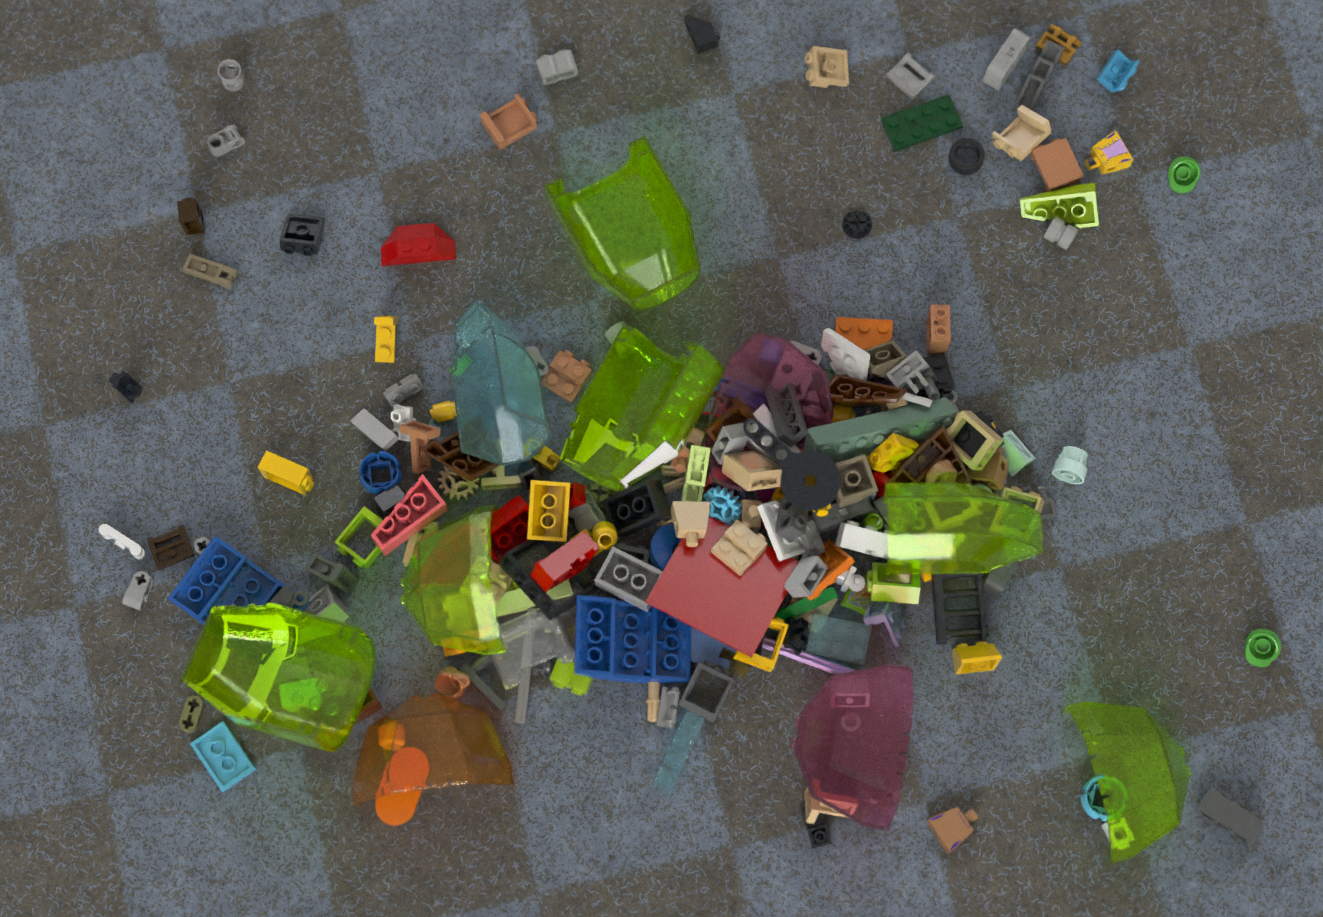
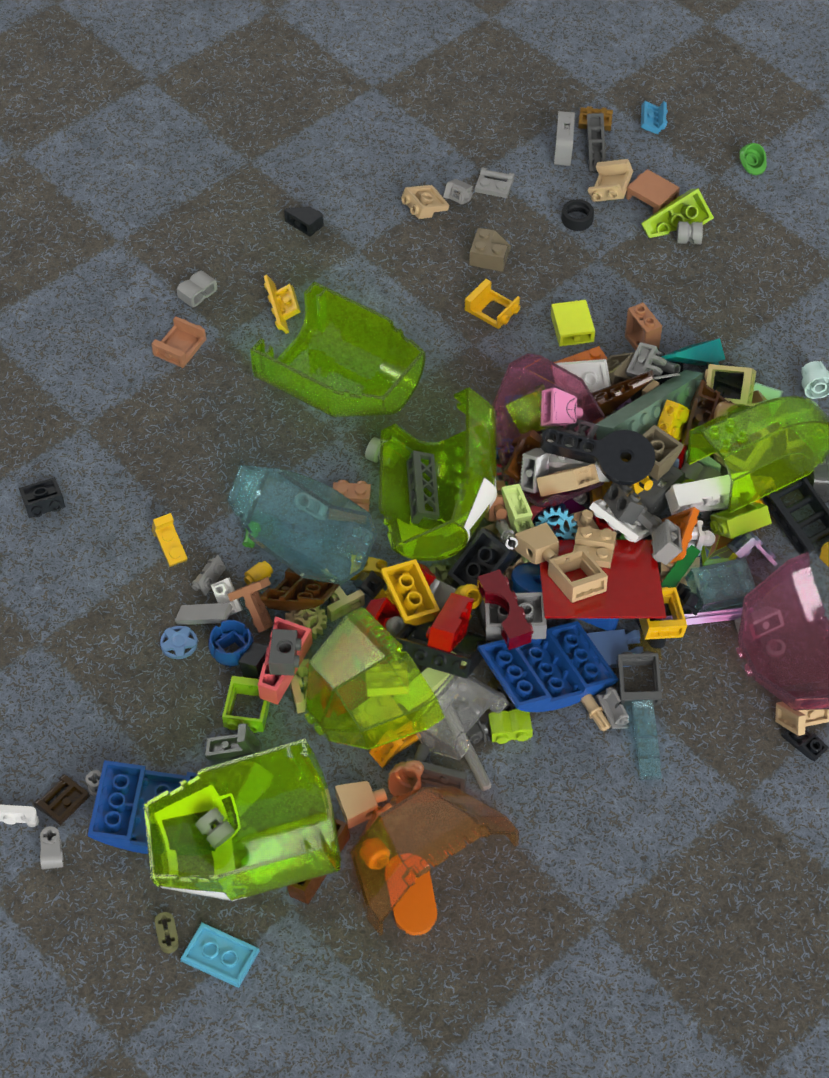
camera: 30 degrees left, 20 degrees down
(269, 657) = (220, 833): none -> wheel
(286, 473) = (141, 691): yellow window -> none
(343, 443) = (178, 642): none -> medium blue wheel
(405, 680) = (358, 801): none -> tan torso
(407, 506) = (280, 662): none -> dark grey brick
(417, 245) = (153, 463): red wedge -> none
(521, 532) = (394, 625): none -> light grey tile
(613, 599) = (495, 590): none -> dark red arch
(625, 398) = (417, 484): none -> dark grey fence
(626, 122) = (283, 303): none -> yellow bracket
(669, 495) = (506, 534): none -> light grey pin
(701, 591) = (582, 588): none -> tan window
(767, 382) = (527, 411): none -> clear neon green bracket
(784, 396) = (559, 408): none -> bright pink torso
(813, 210) = (482, 296): none -> yellow window
(851, 230) = (524, 301): black gear -> none
(855, 157) = (489, 250): none -> dark tan slope
(866, 72) = (458, 191): none -> light grey window
(883, 281) = (572, 323): none -> neon yellow brick
(921, 122) = (525, 209): dark green plate -> none
(974, 379) = (698, 354): none -> teal wedge
(1109, 155) = (688, 169): yellow torso -> none

